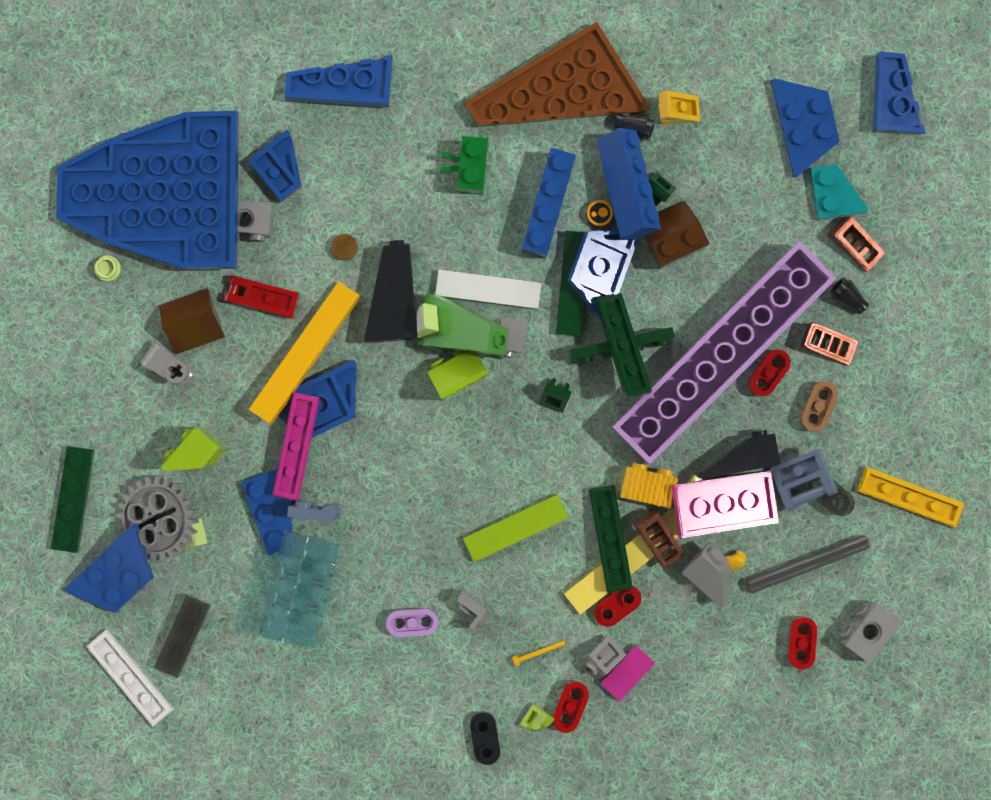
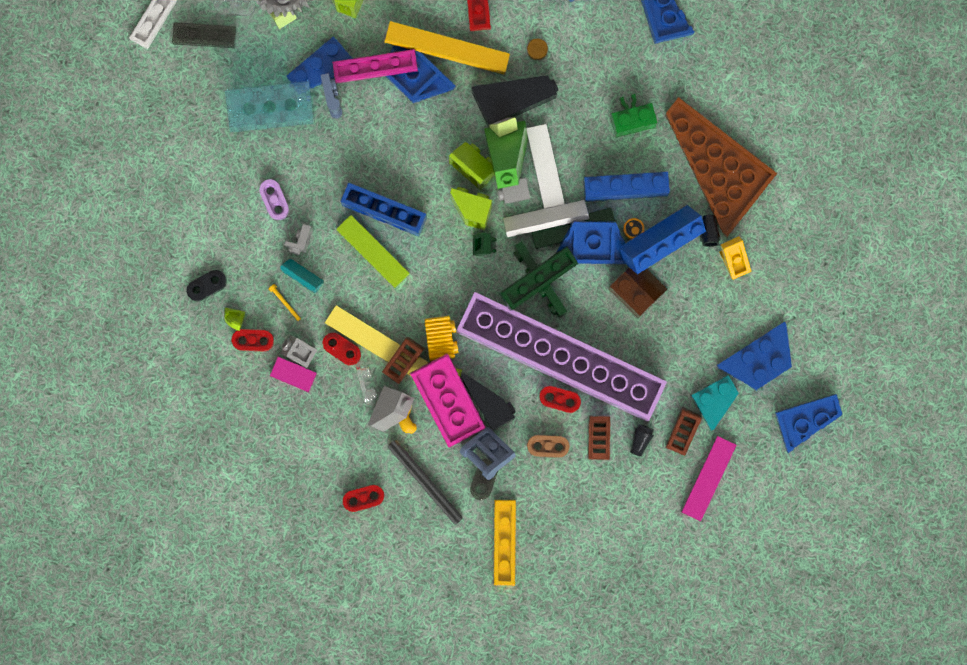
camera: 75 degrees right, 5 degrees down
(472, 498) = (383, 209): none -> blue brick
(512, 393) = (472, 208): none -> lime slope
(514, 621) = (302, 275): none -> teal slope
(551, 311) = (545, 218): none -> white tile
(610, 538) = (390, 324): dark green tile -> none
(661, 188) = (669, 266): dark green tile -> none
(884, 627) = (377, 548): light grey brick -> none
(921, 235) = (708, 478): none -> dark pink tile

